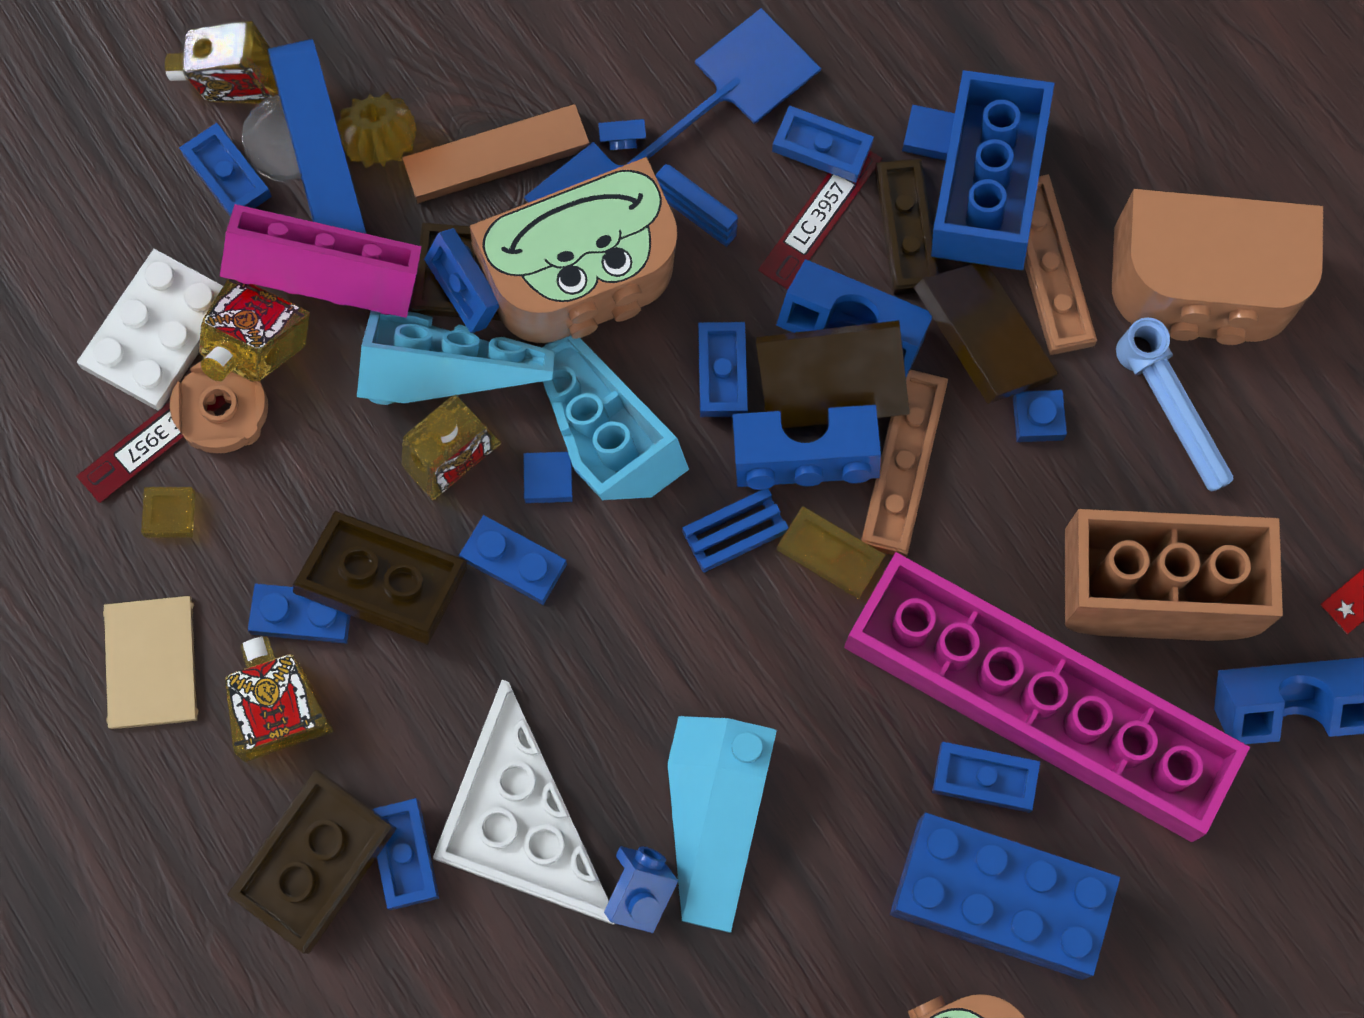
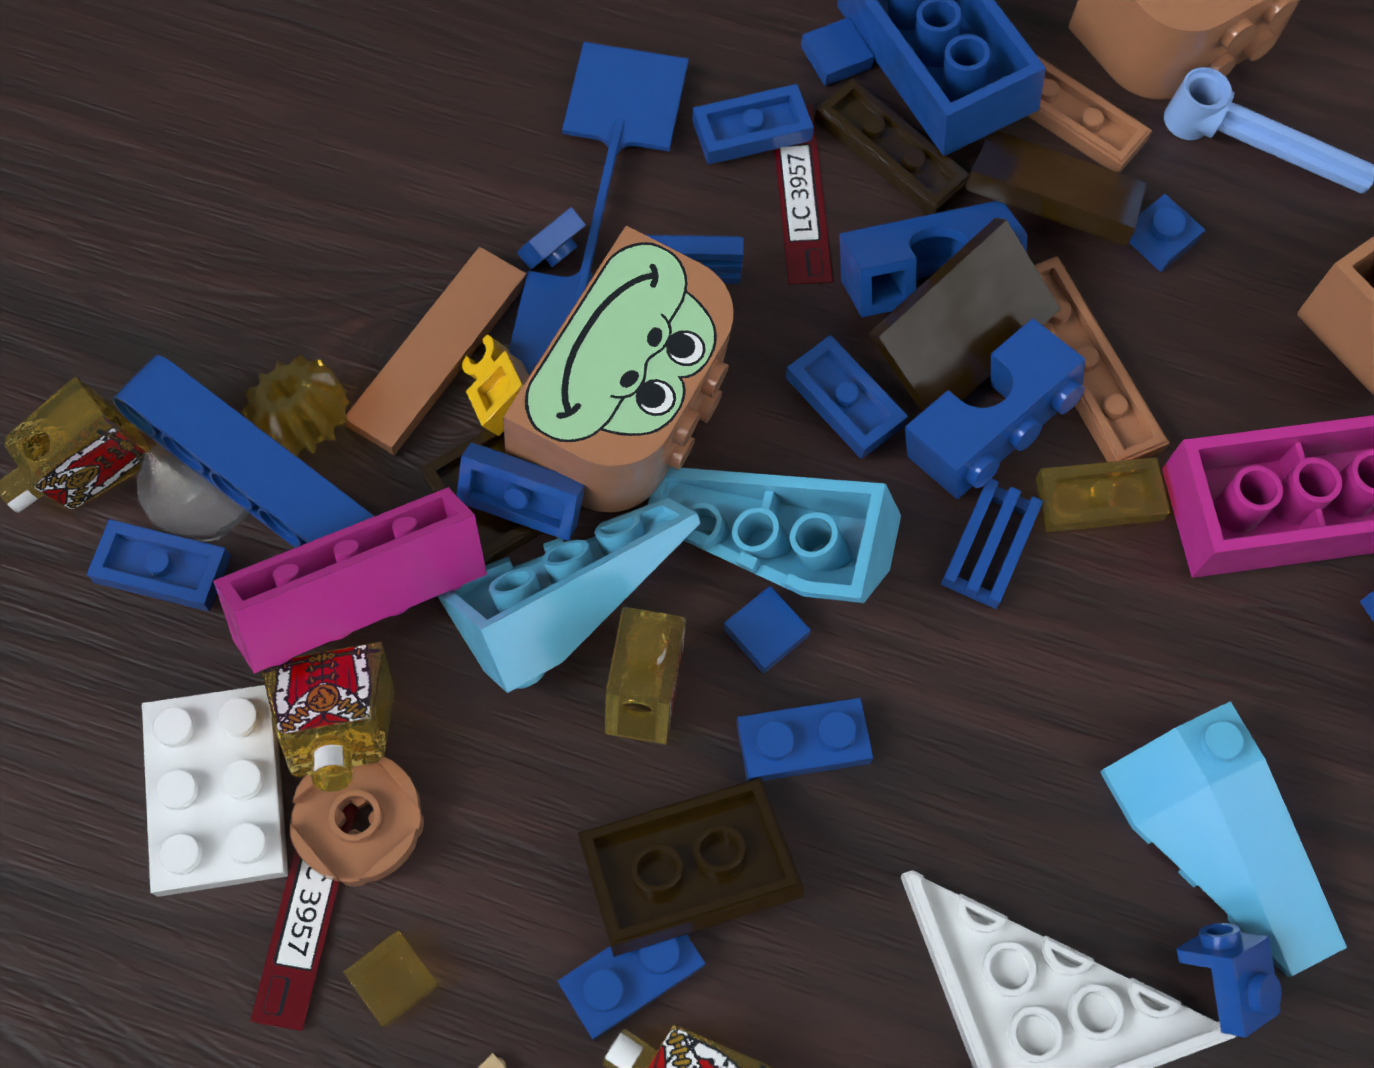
camera: 40 degrees left, 5 degrees down
(511, 194) = (497, 383): none -> yellow plate

